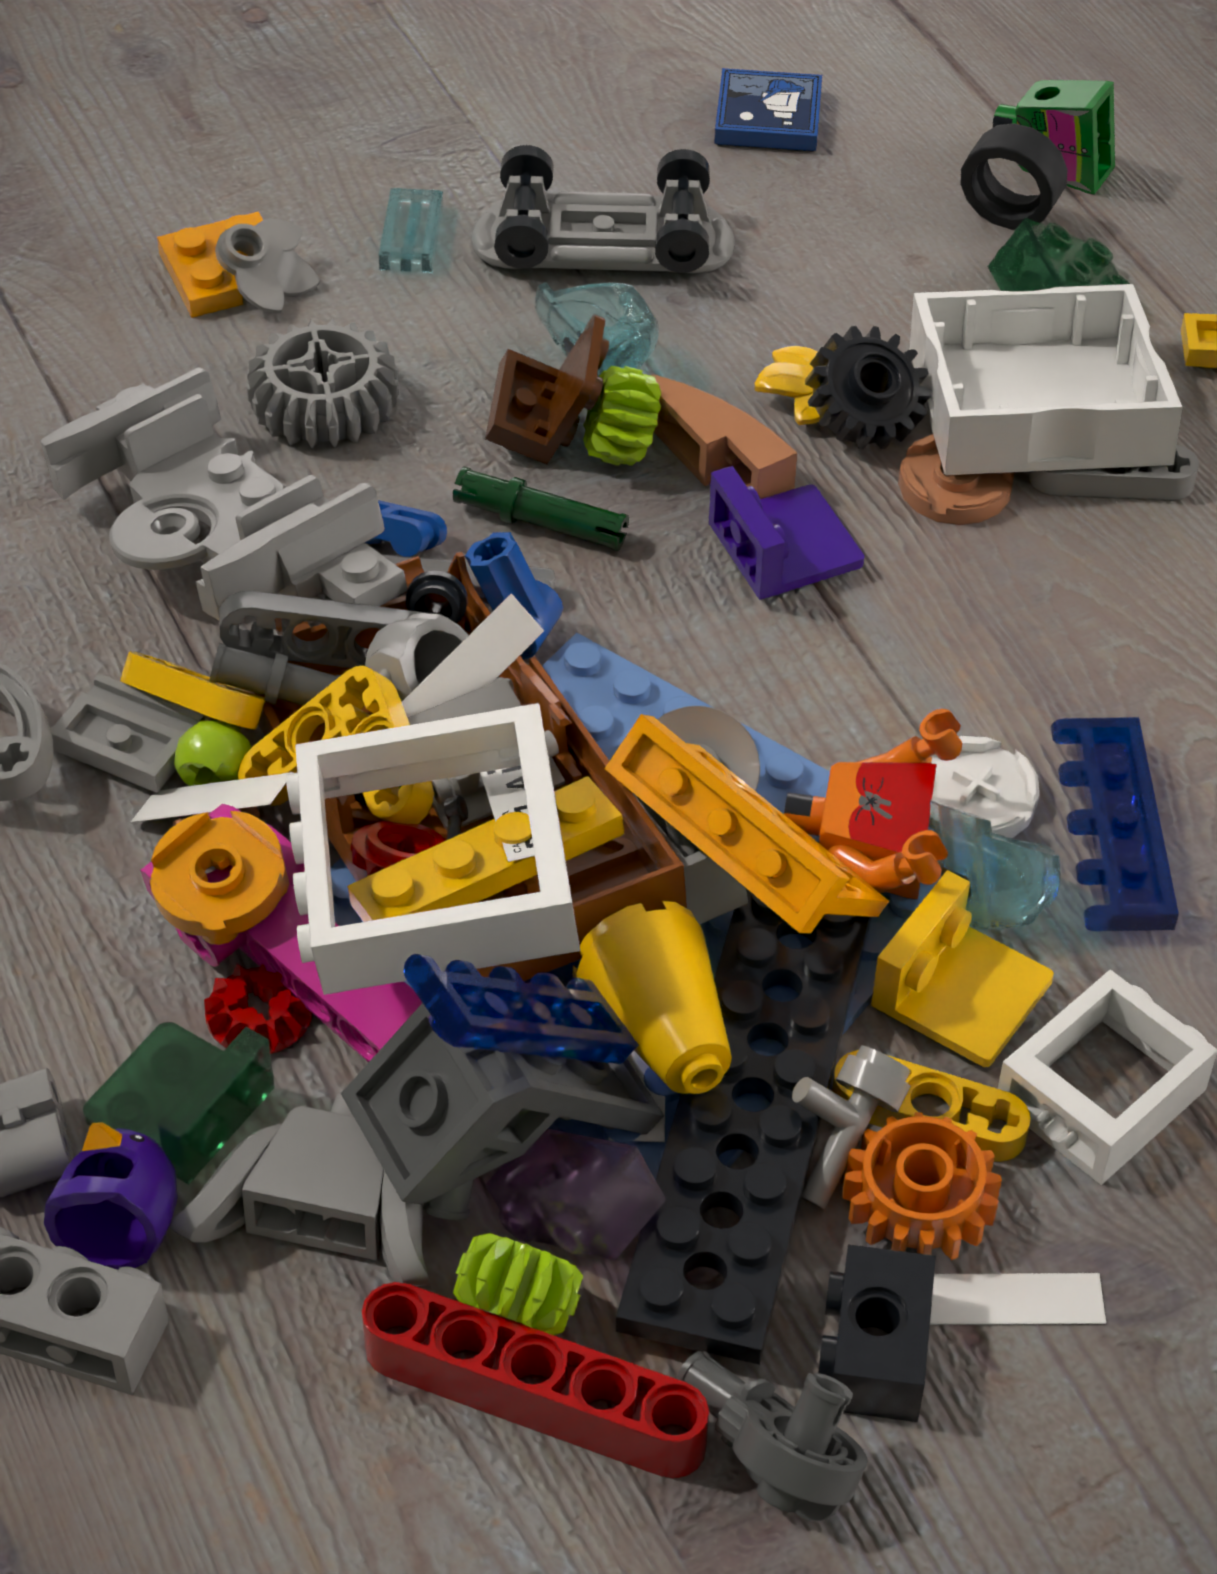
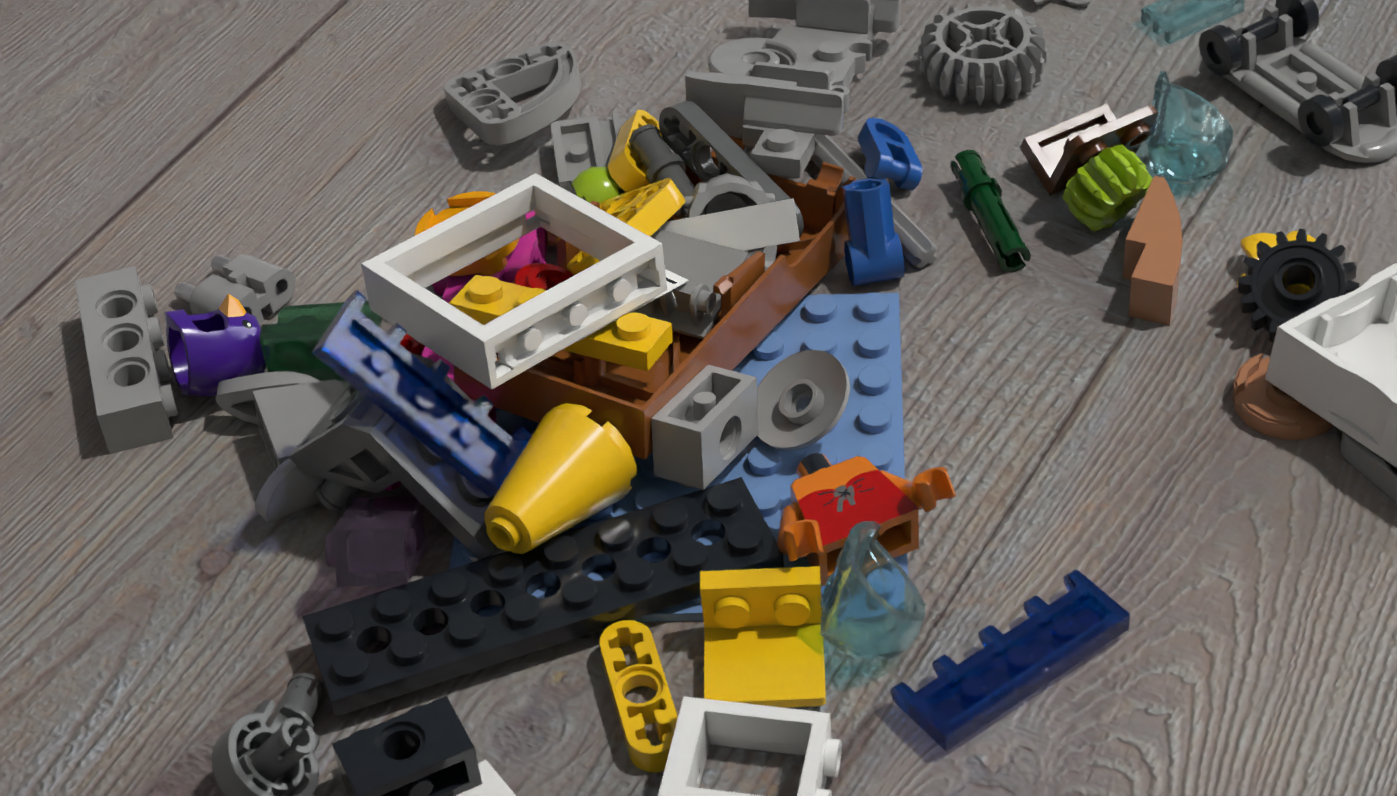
camera: 60 degrees right, 5 degrees down
(442, 584) = (809, 194): black plate -> none
(518, 1283) = (288, 556): lime gear -> none
(554, 1407) = (233, 606): red beam -> none
(739, 828) = (697, 413): light orange fence -> none
(779, 538) = (1097, 335): dark purple bracket -> none
(874, 1083) = (596, 634): light grey piece -> none
(888, 1189) = (551, 720): orange gear -> none
(989, 784) = (971, 570): white tile -> none

